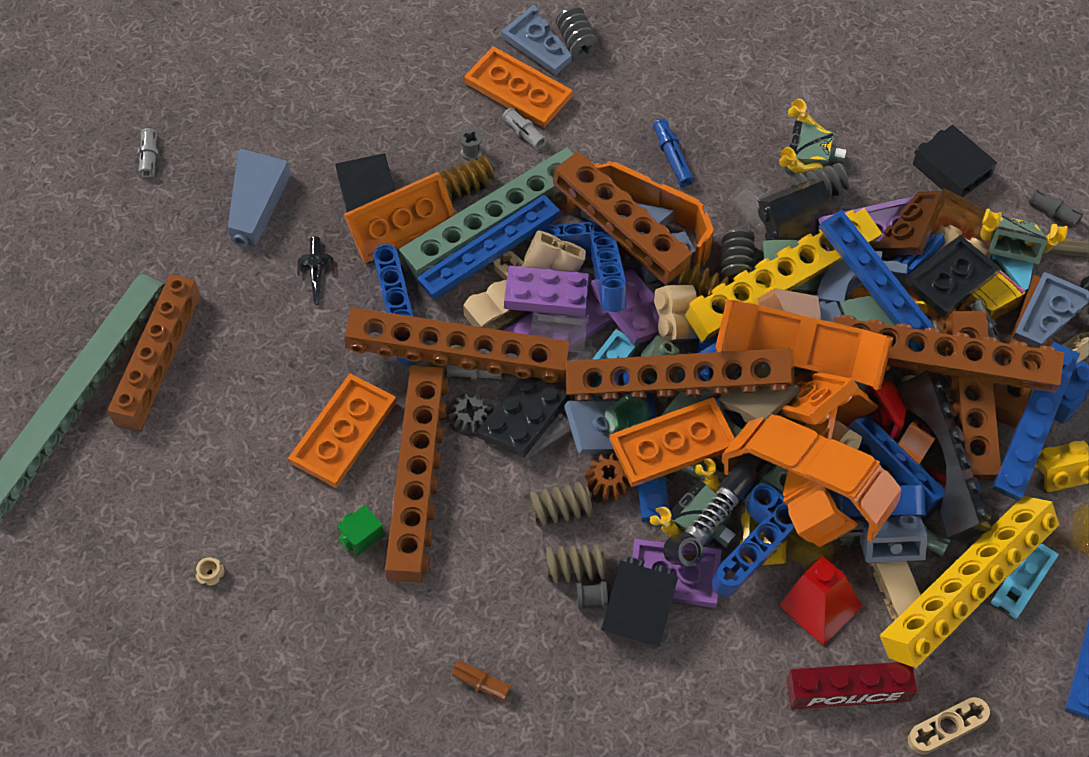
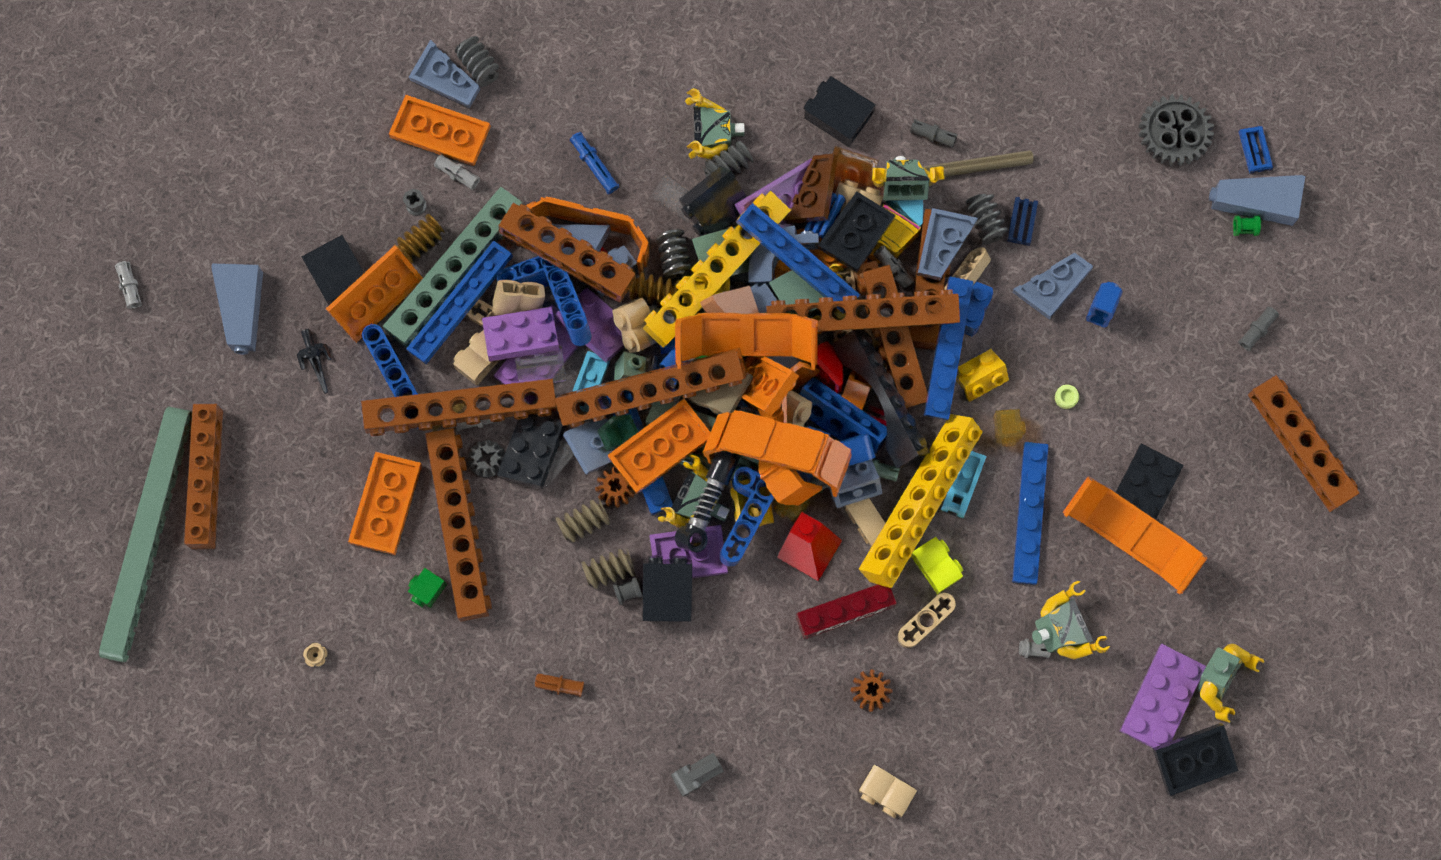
camera: 15 degrees left, 15 degrees up
(974, 663) = (936, 564): none -> neon yellow brick

